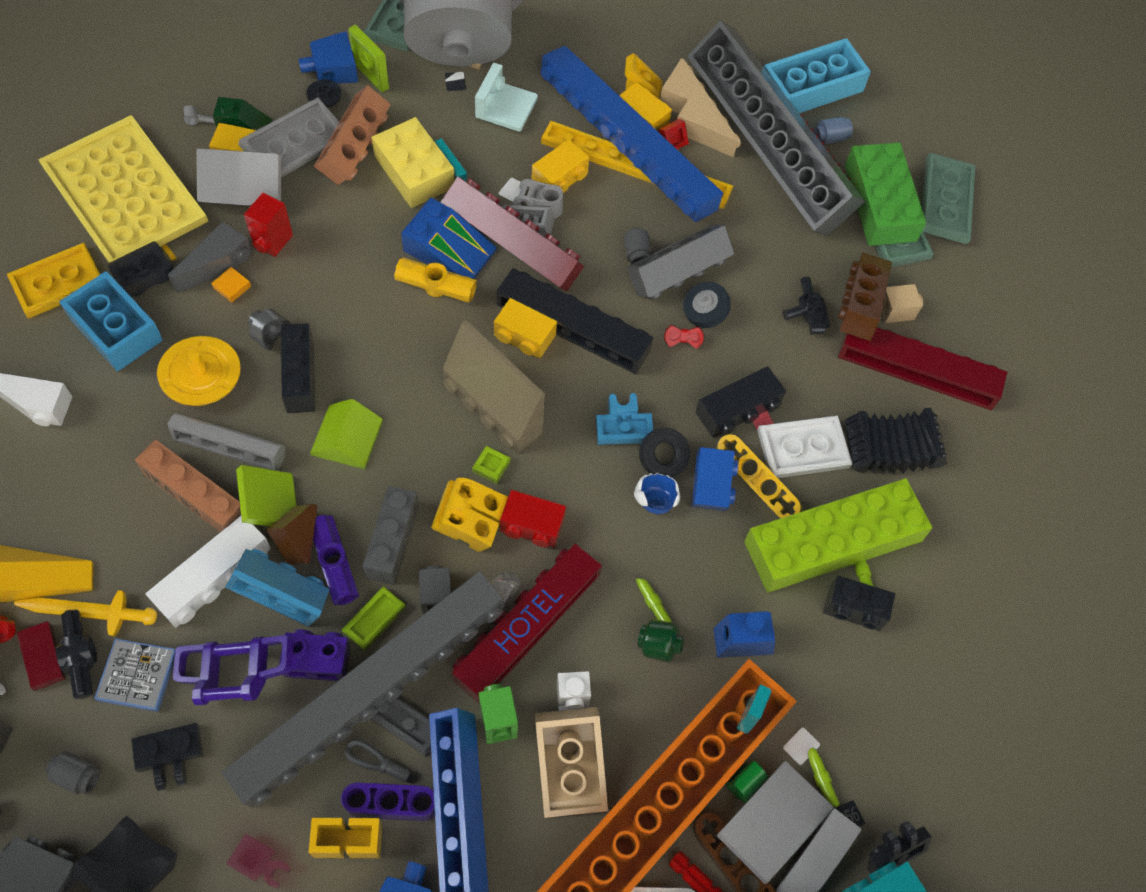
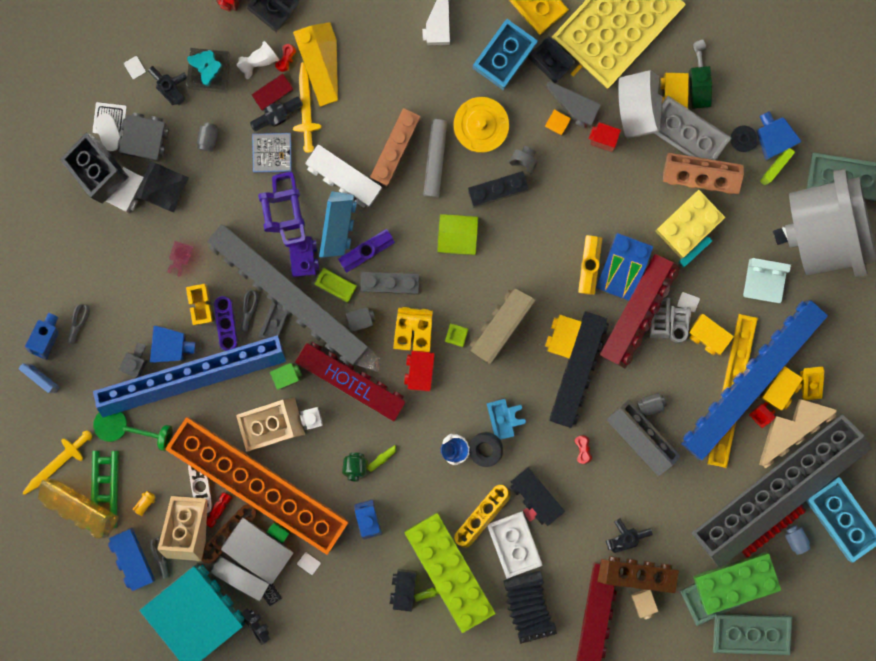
camera: 85 degrees right, 25 degrees up
(167, 748) = (232, 184): black hinge -> none
(264, 494) = (398, 198): lime tile -> none
(295, 534) = (378, 222): reddish brown slope -> none
(707, 304) = (611, 462): black wheel -> none
(714, 479) = (471, 485): blue brick -> none
(754, 709) = (310, 527): teal tile -> none
(822, 777) = (289, 578): lime piece -> none

